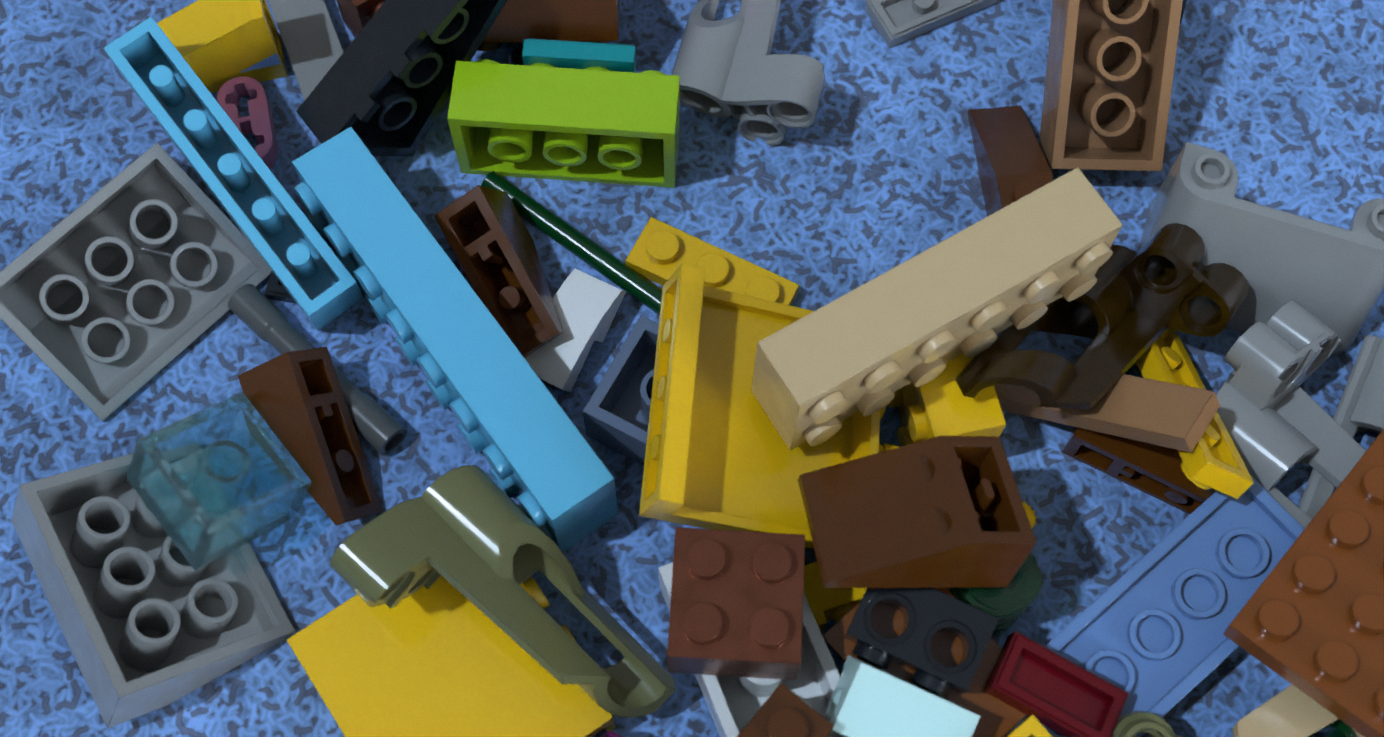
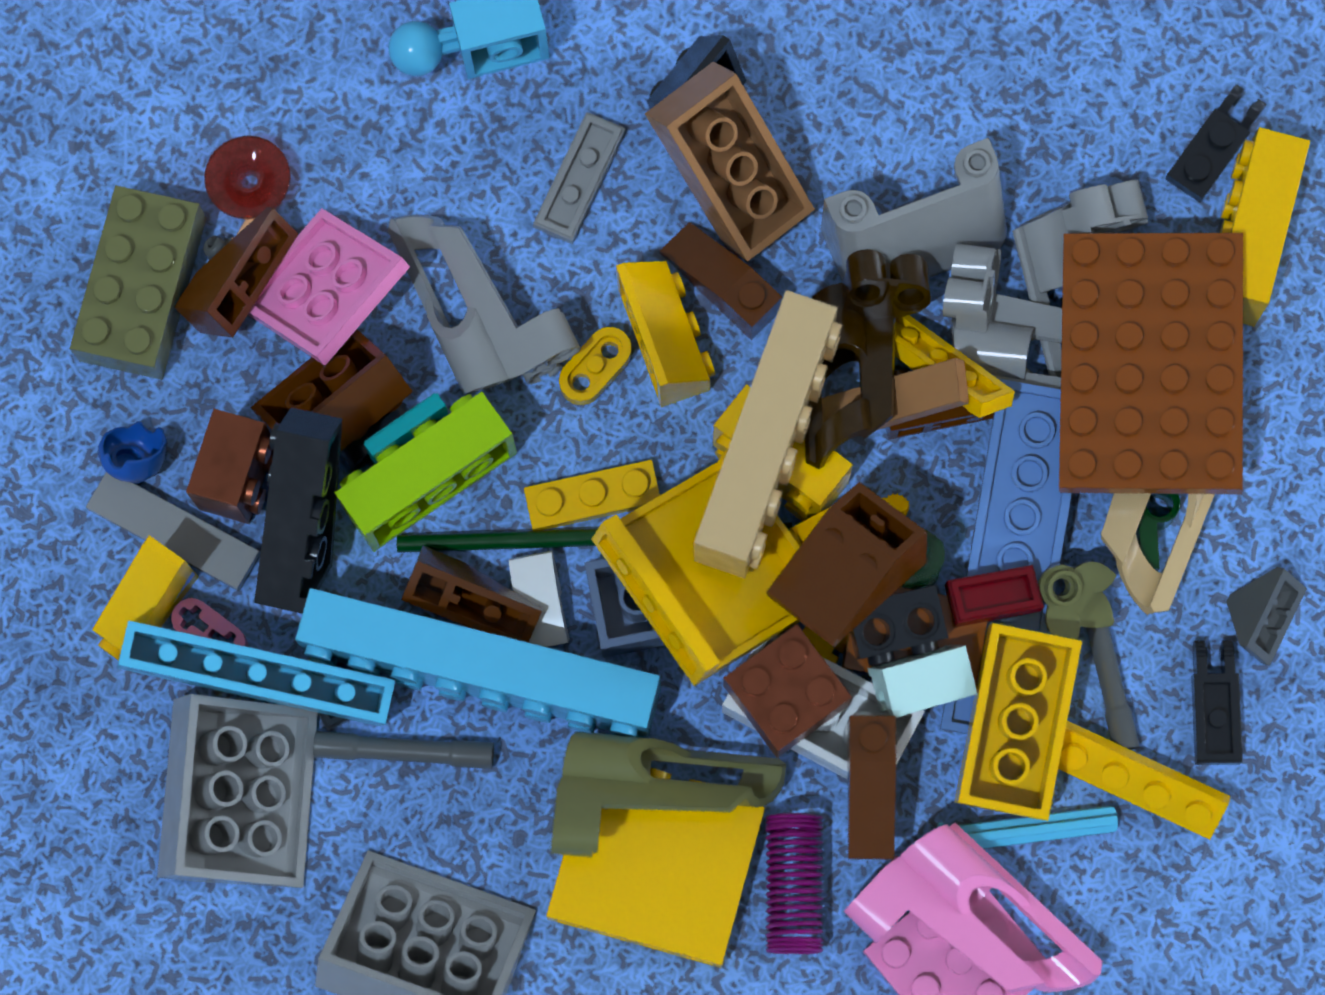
camera: 35 degrees left, 10 degrees up
(217, 479) = (421, 861): clear light blue brick -> none
(310, 417) = (441, 789): reddish brown slope -> none
(815, 158) = (594, 366): none -> yellow plate
(912, 170) = (664, 330): none -> yellow slope

